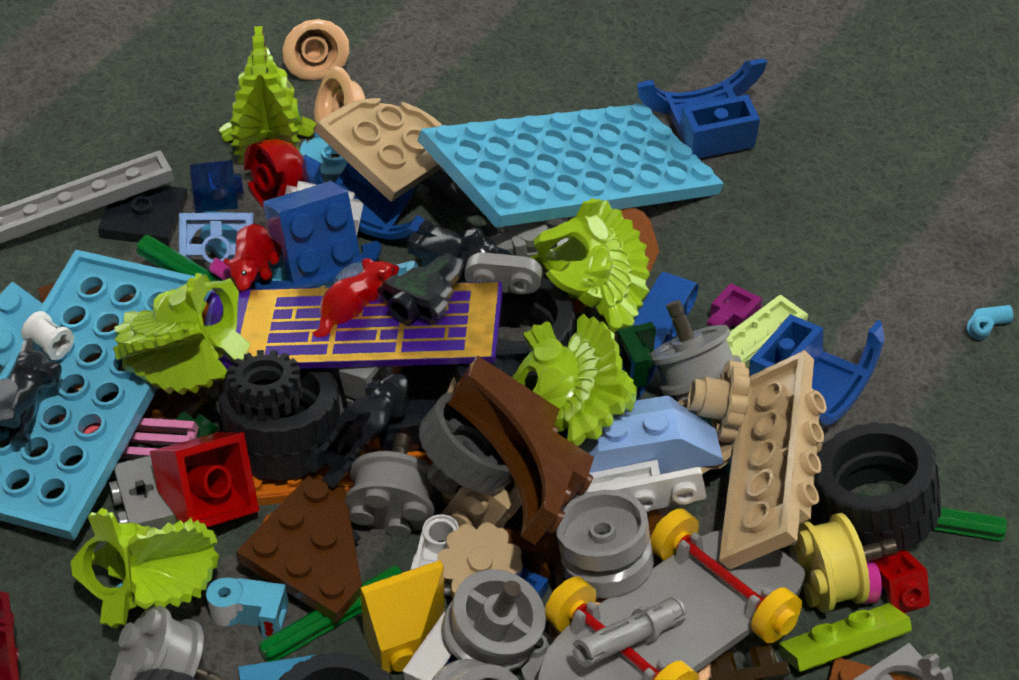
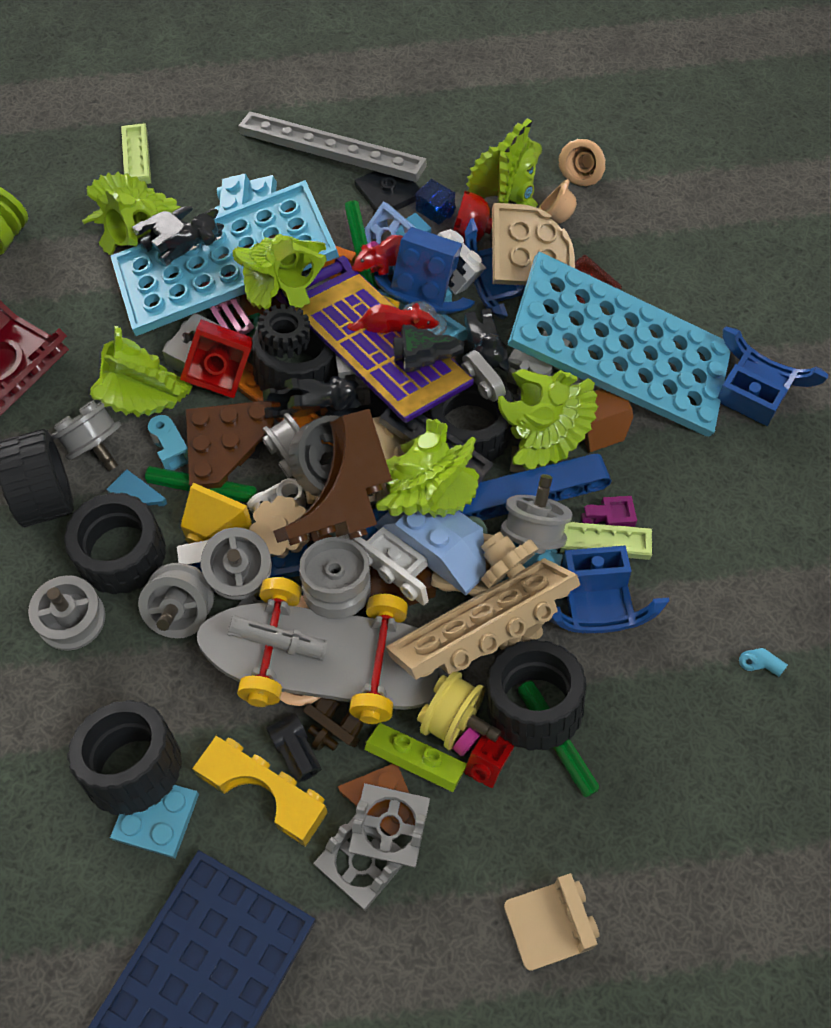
camera: 50 degrees right, 15 degrees up
(51, 338) = (233, 216): white bush -> none
(635, 350) = (504, 486): dark green bracket -> none

